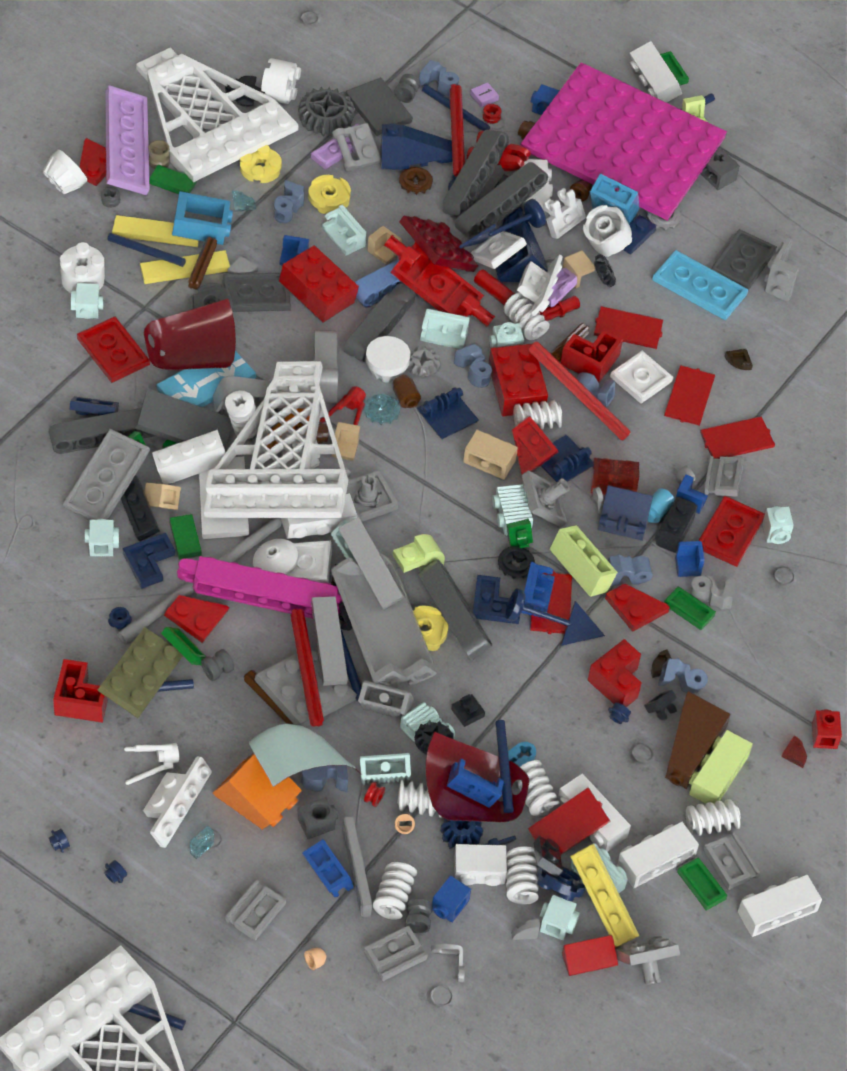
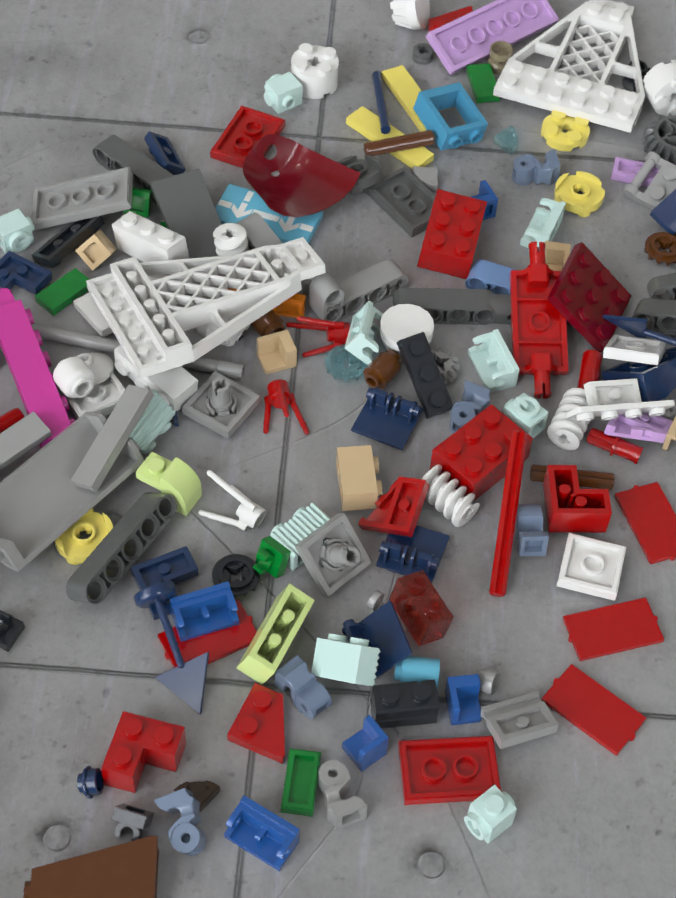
camera: 60 degrees right, 0 degrees up
(293, 561) = (74, 377): none -> white head
(372, 381) = (363, 333): none -> light aqua hinge
(385, 460) = (280, 398): none -> red plant
(433, 369) = (425, 375): none -> black plate
(471, 528) = (249, 513): none -> white plant
(633, 533) = (345, 661): none -> light aqua brick
(713, 643) = (262, 833): none -> blue hinge

